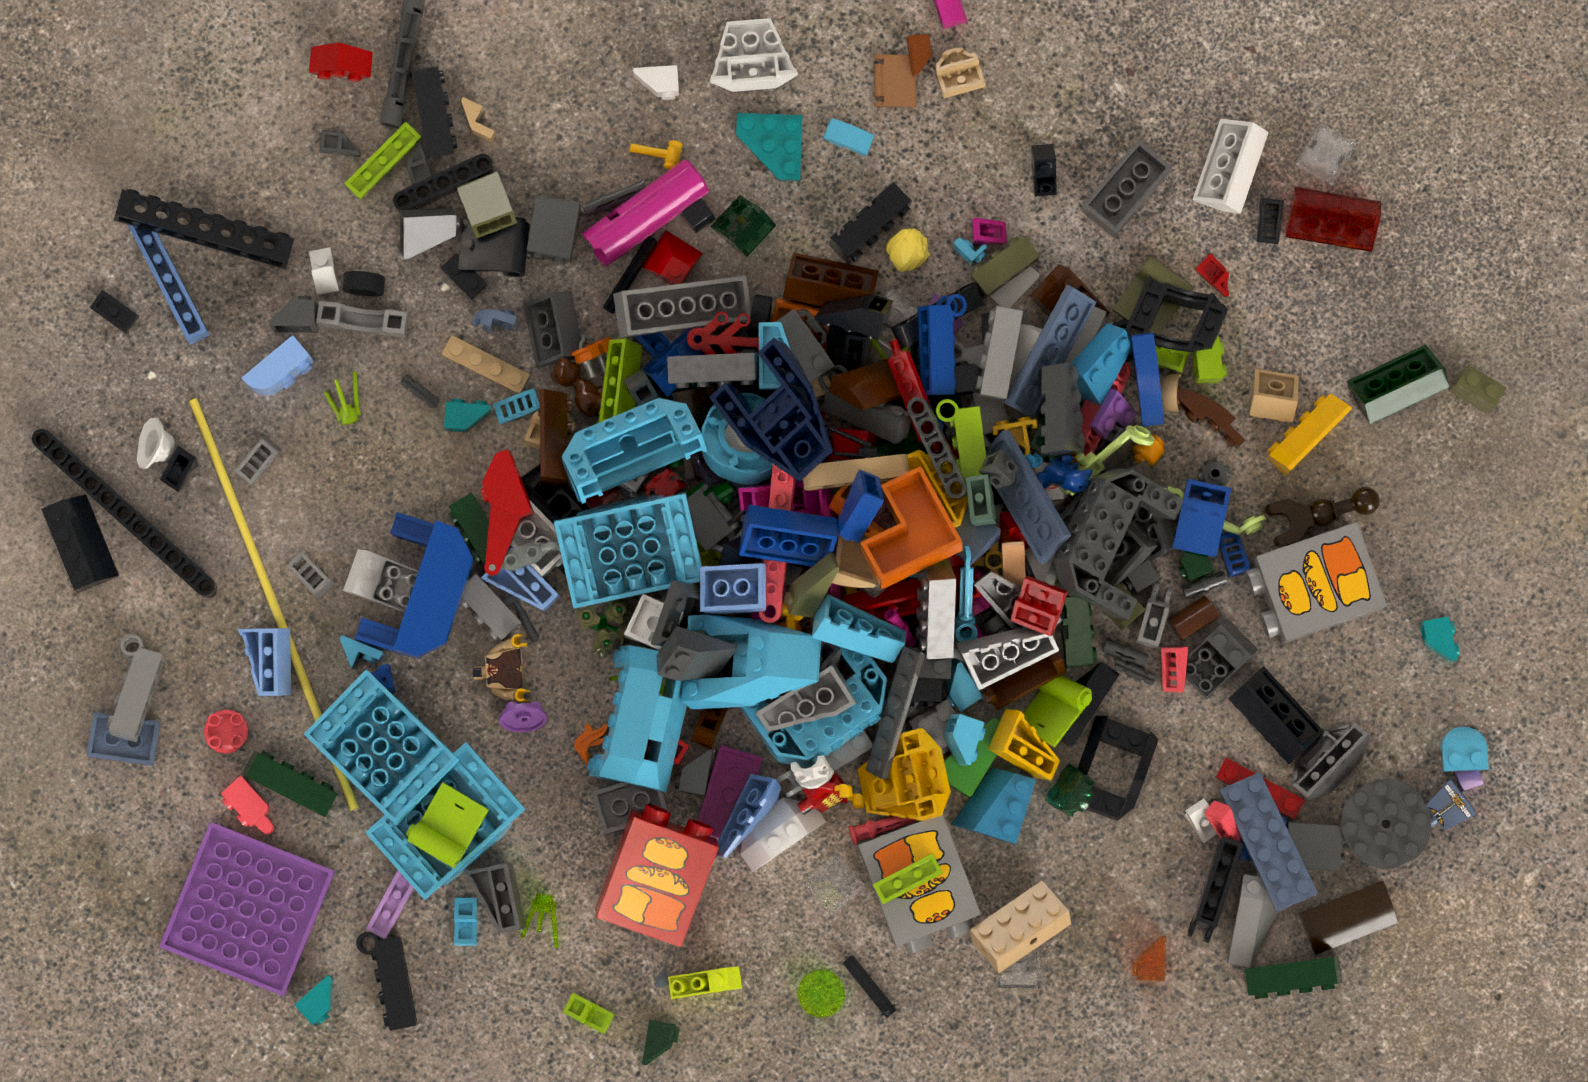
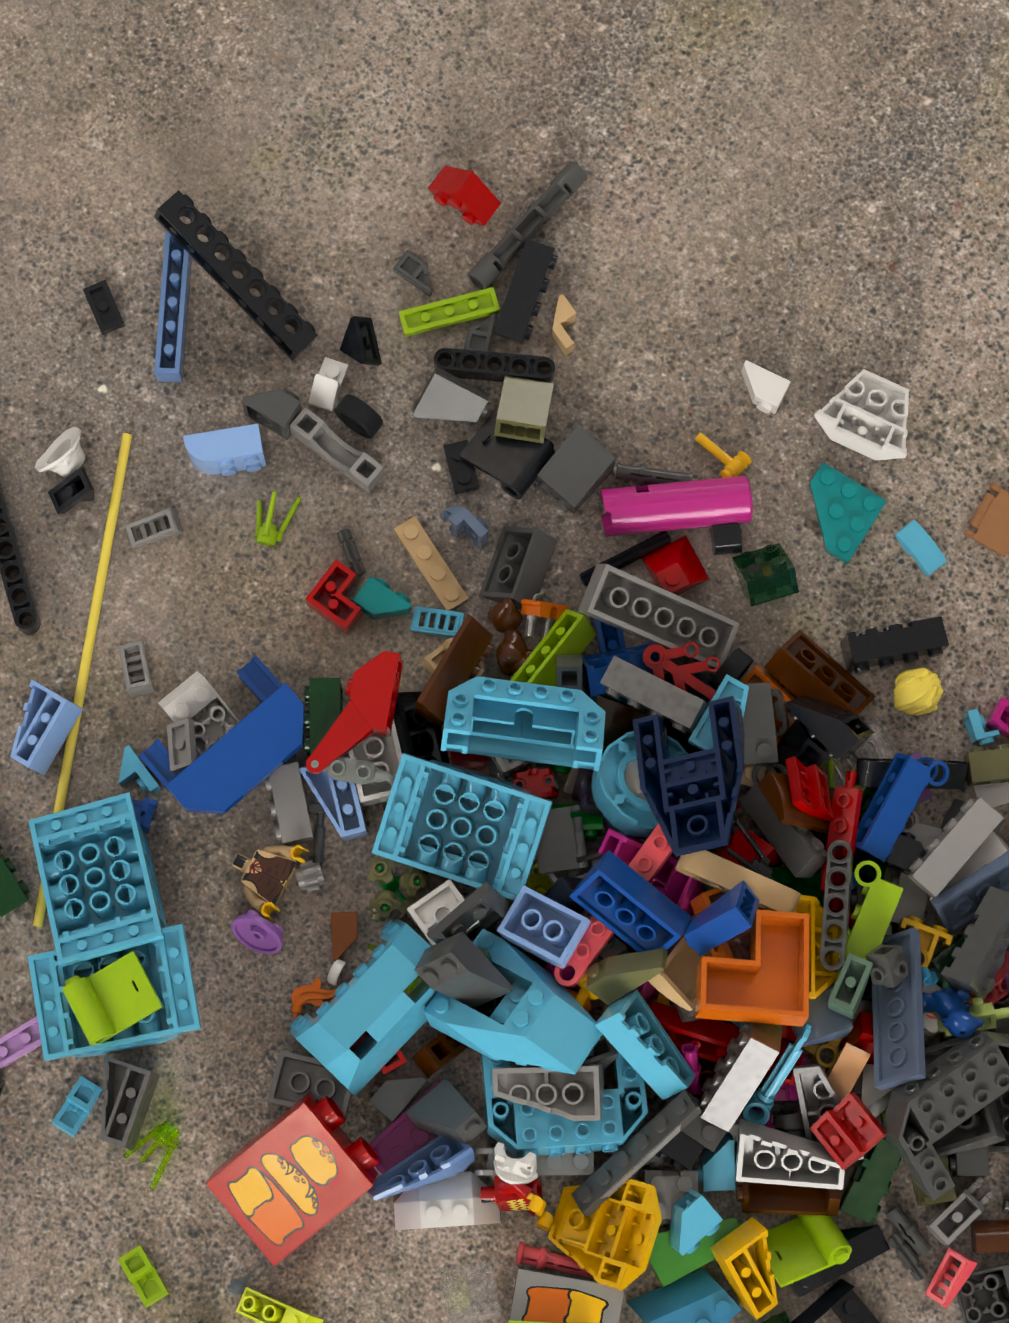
camera: 30 degrees right, 5 degrees down
(329, 224) = (361, 341): none -> black slope
(383, 612) = (181, 744): none -> light grey plate
(426, 437) = (329, 597): none -> red brick
(536, 652) = (309, 876): none -> light grey gear
(585, 679) = (344, 932): none -> dark orange tile
(598, 711) = (337, 972): none -> white tile
(741, 766) = (446, 1114): none -> dark grey slope
(869, 372) = (809, 789): none -> red slope

